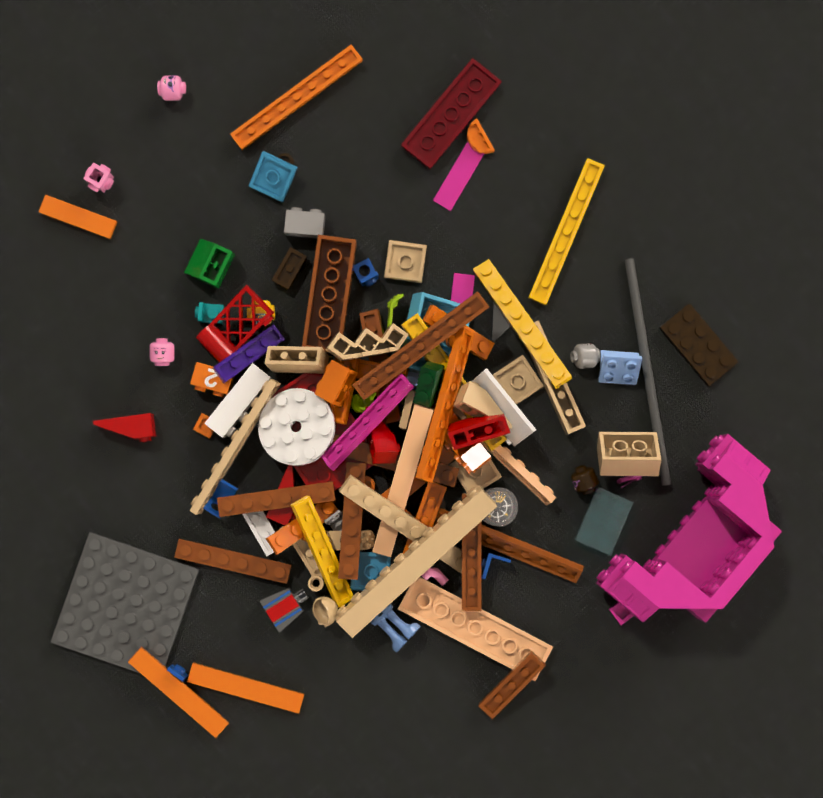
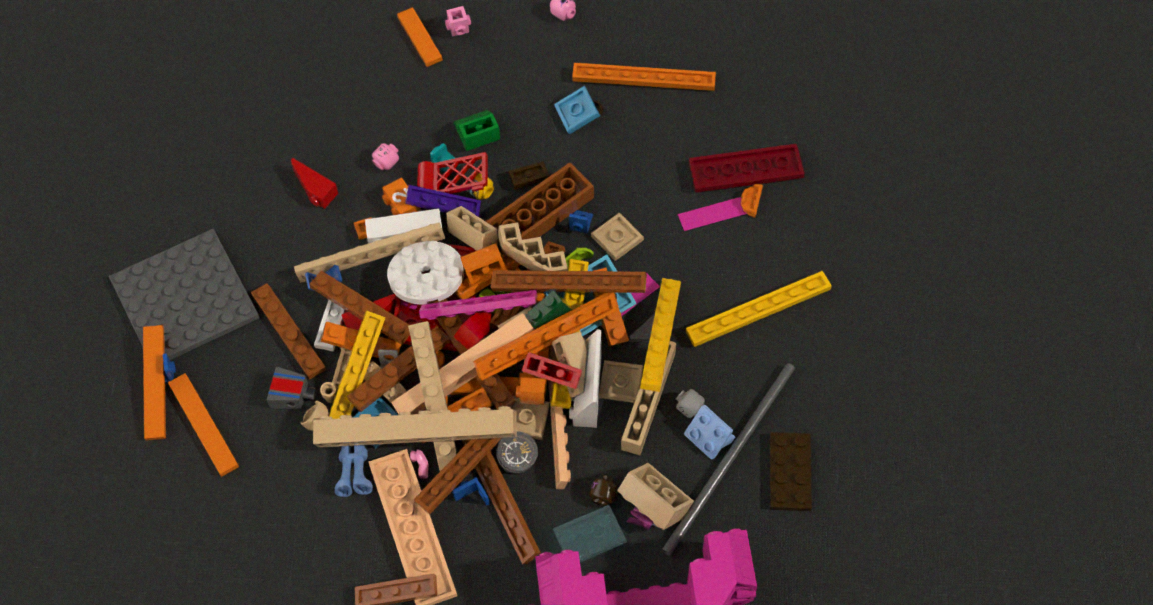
camera: 45 degrees right, 25 degrees down
(303, 223) = (565, 151): light grey brick -> none

